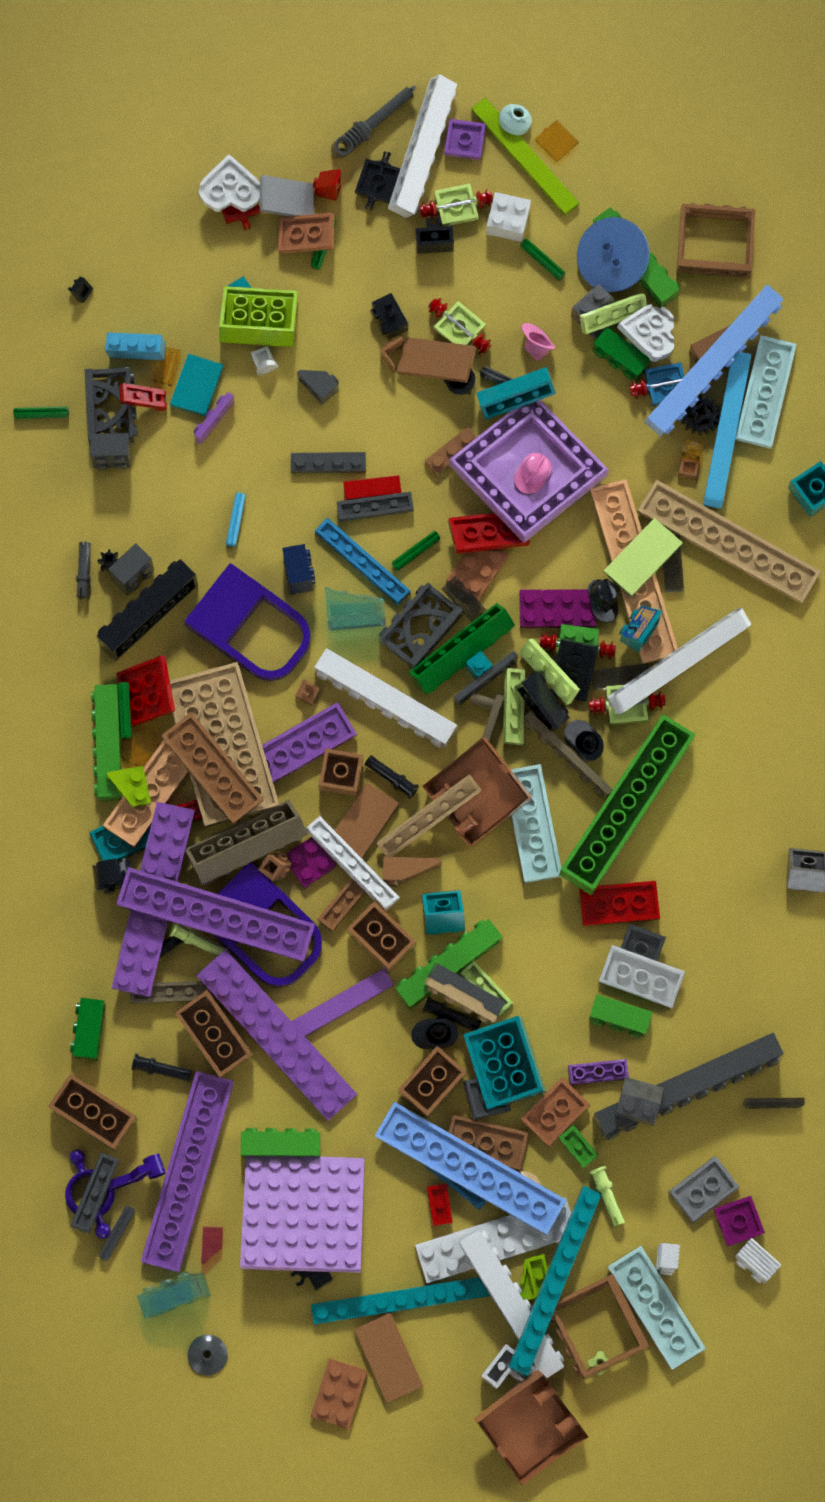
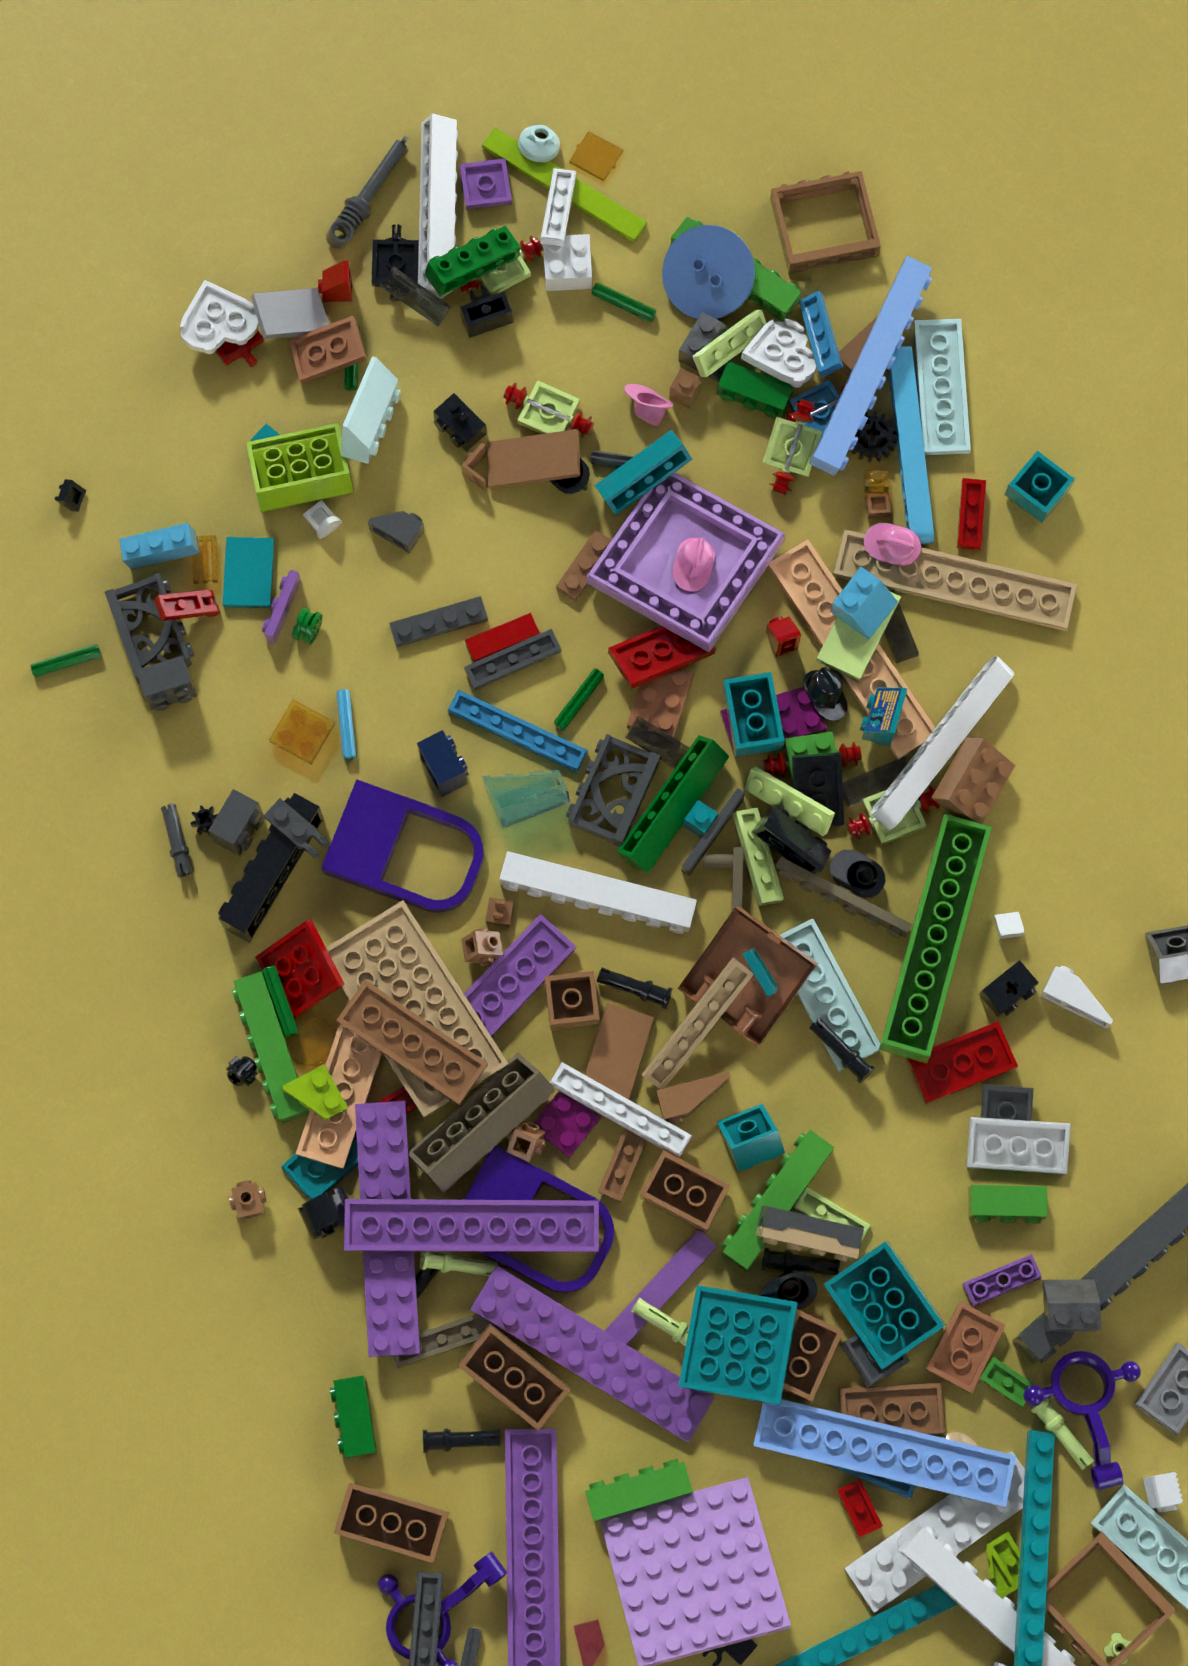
camera: 15 degrees left, 0 degrees up
(55, 855) = (254, 1206): none -> medium nougat brick
(81, 753) = (242, 1071): none -> black gear
(172, 584) = (294, 827): none -> dark grey hinge
(200, 515) = (302, 731): none -> clear yellow plate
(228, 437) = (307, 626): none -> green wheel
(286, 713) = (482, 946): none -> medium nougat brick
(322, 289) = (369, 412): none -> light aqua slope
(345, 1038) = (677, 1330): none -> yellowish green pin
(384, 210) = (415, 296): none -> clear smoke tile
(385, 1058) = (738, 1345): none -> teal plate
(435, 195) = (472, 260): none -> green brick
(487, 791) = (761, 971): none -> teal tile
(513, 172) = (558, 207): none -> white tile
(534, 874) = (850, 1058): none -> black pin
(541, 598) = (753, 714): none -> teal brick
(568, 338) = (685, 387): none -> medium nougat brick
(584, 546) = (783, 635): none -> red slope
(630, 1233) = (1105, 1473): none -> dark purple piece
(635, 405) = (792, 446): none -> yellowish green plate
(651, 539) = (864, 603): none -> medium azure slope
(679, 851) = (1017, 977): none -> black brick
(684, 325) = (820, 333): none -> dark azure plate
(687, 812) = (1009, 925): none -> white slope
(689, 500) = (892, 544): none -> bright pink piece
(693, 696) = (973, 780): none -> medium nougat brick
(717, 876) = (1072, 994): none -> white slope
(757, 495) = (971, 514): none -> red plate

